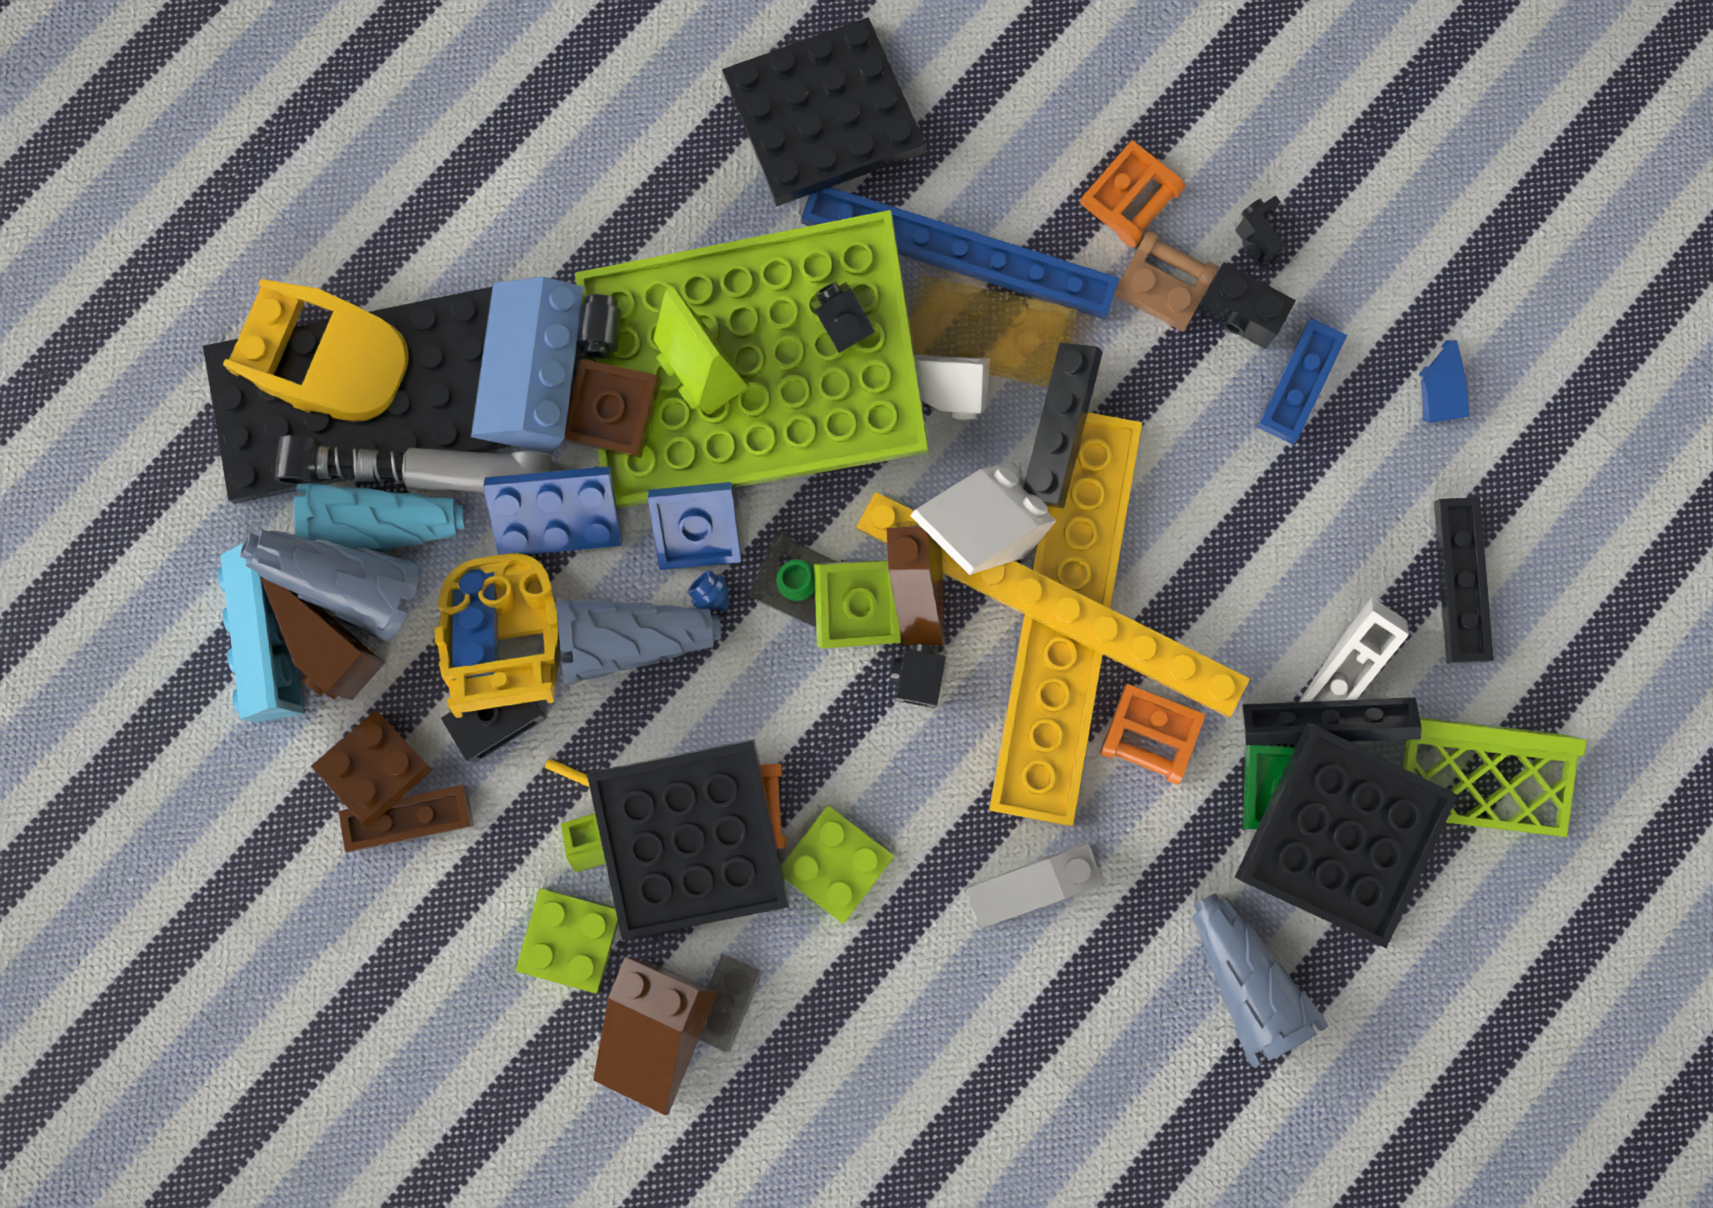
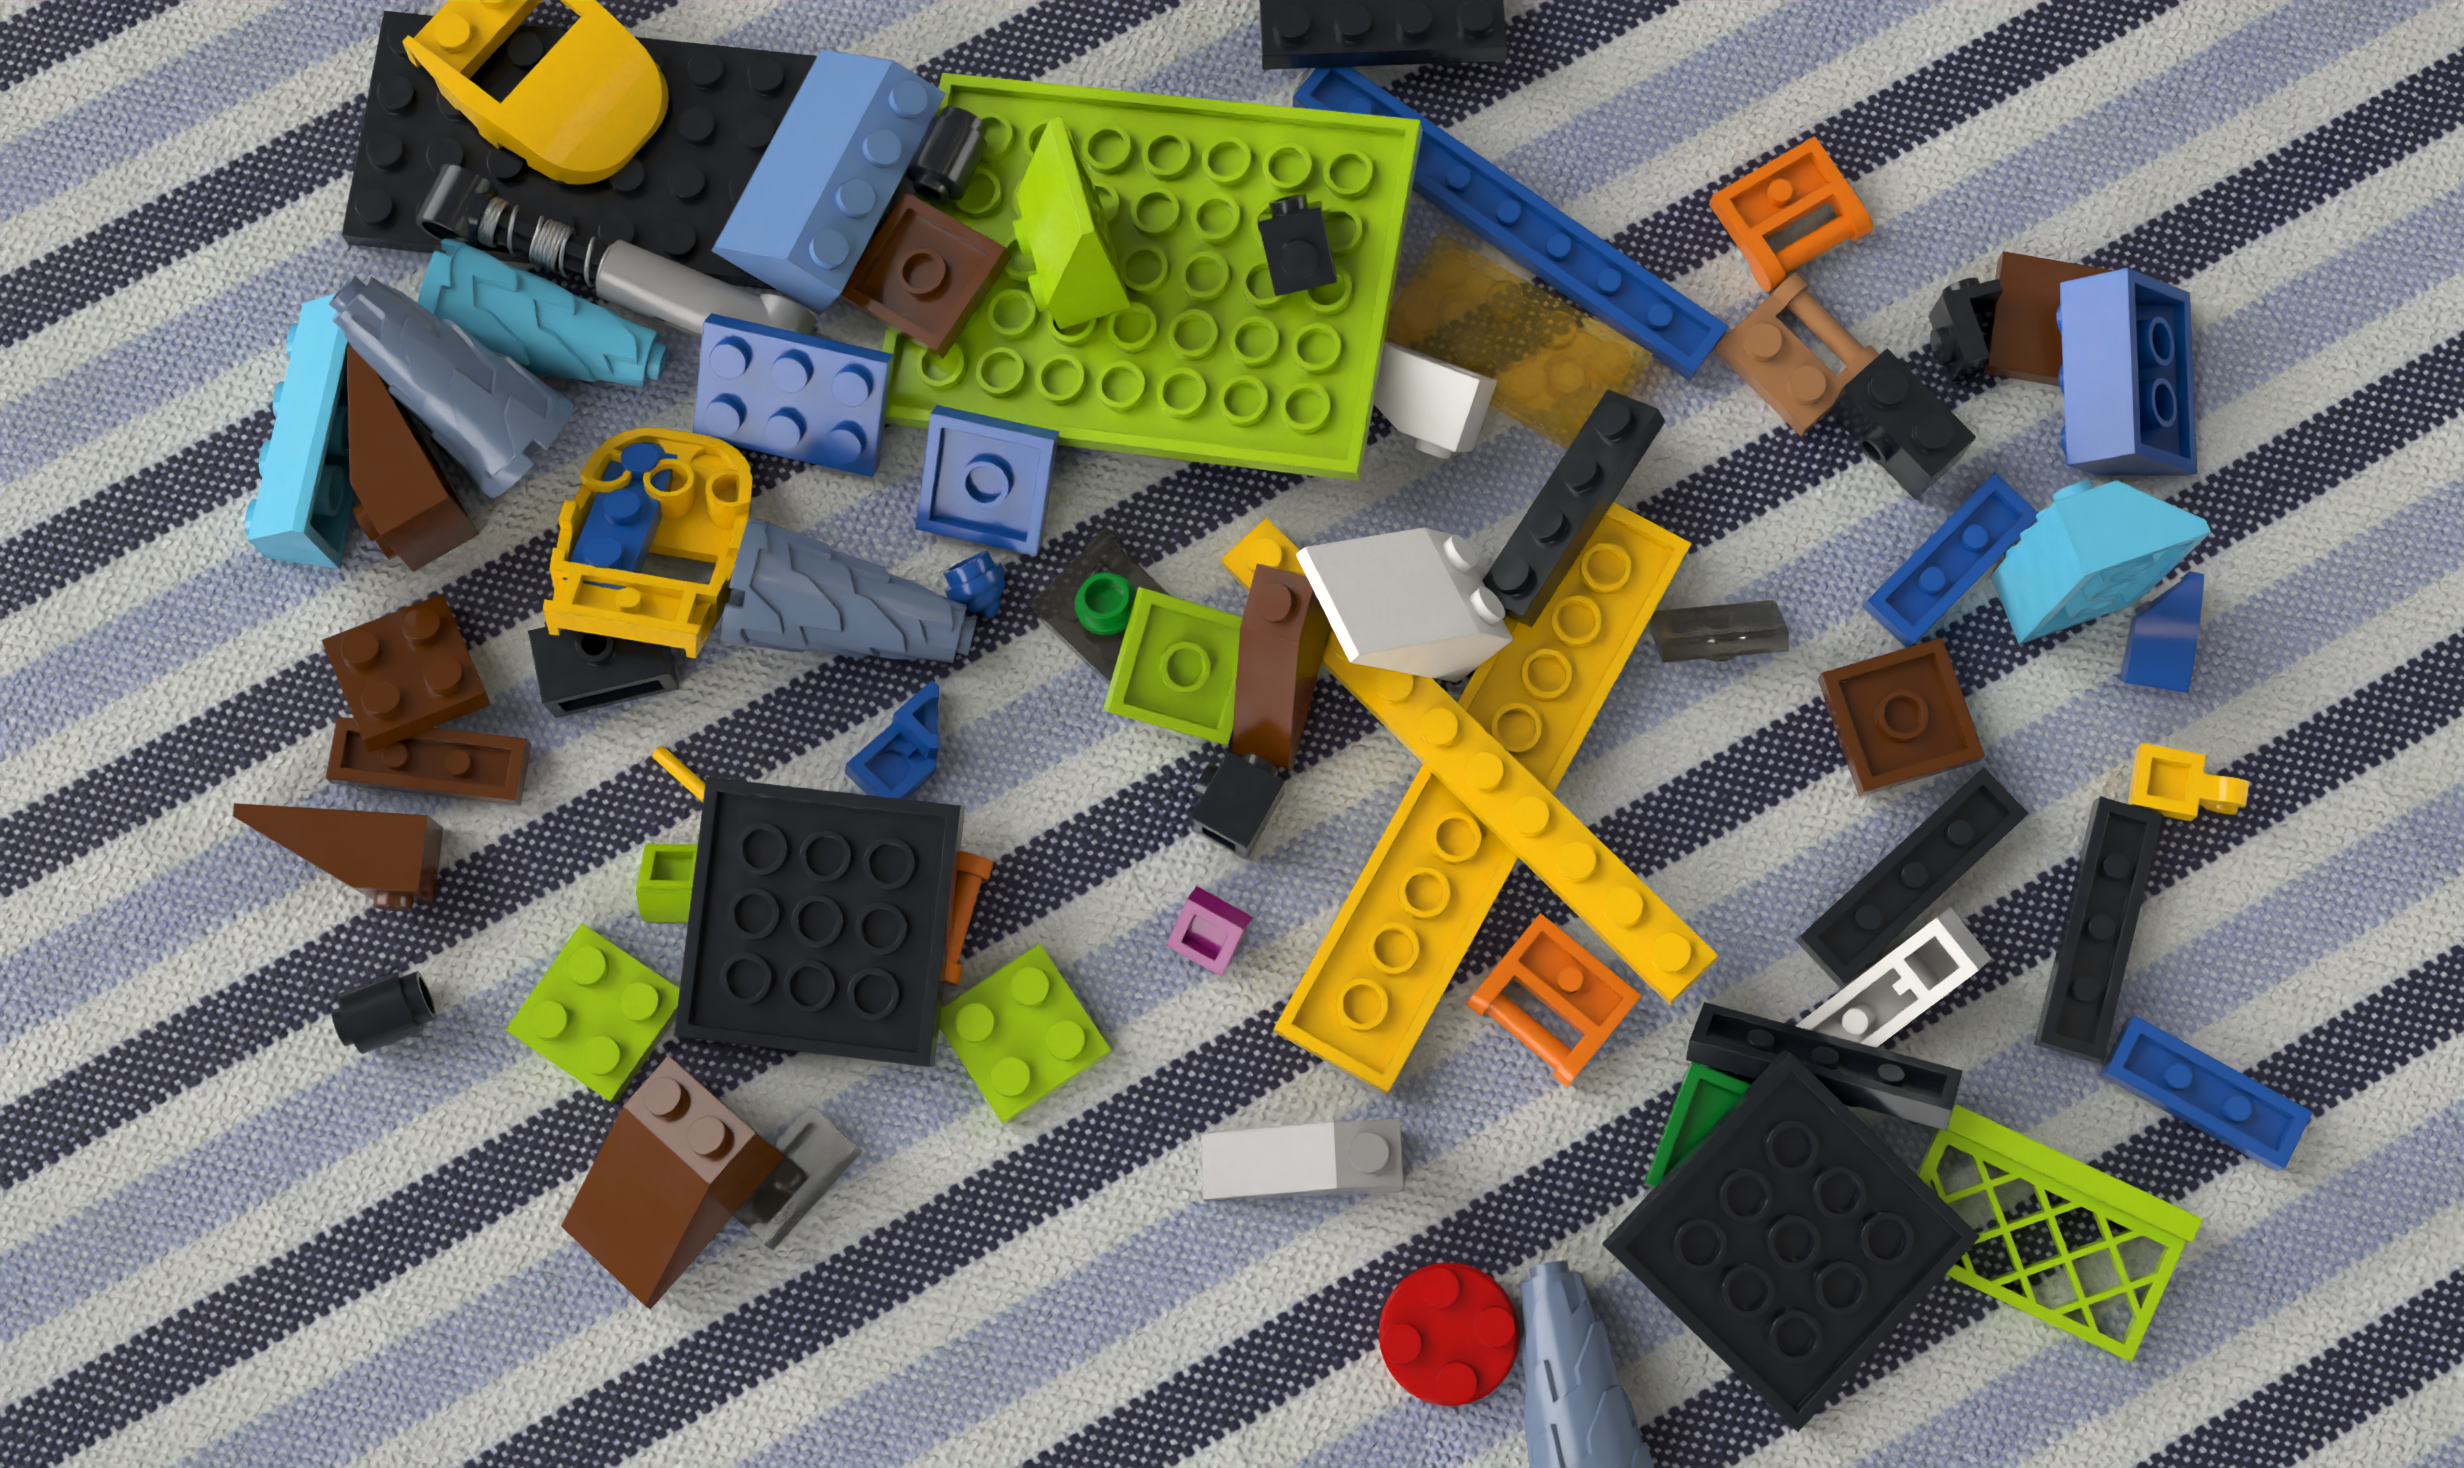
camera: 20 degrees right, 5 degrees down
(385, 891) = (373, 852): none -> reddish brown slope
(435, 986) = (383, 1011): none -> black brick
(701, 713) = (903, 753): none -> blue slope
(929, 762) = (1209, 931): none -> plate
(1157, 959) = (1449, 1334): none -> red piece
(1177, 471) = (1719, 631): none -> clear smoke plate
(1303, 488) = (1900, 717): none -> reddish brown plate
(1314, 210) = (2023, 322): none -> reddish brown tile
(1342, 585) = (1911, 877): none -> black plate
(1370, 231) = (2127, 376): none -> blue slope
(1392, 354) = (2091, 556): none -> medium azure slope
(1481, 476) = (2176, 785): none -> yellow plate
(1559, 659) = (2206, 1093): none -> blue plate

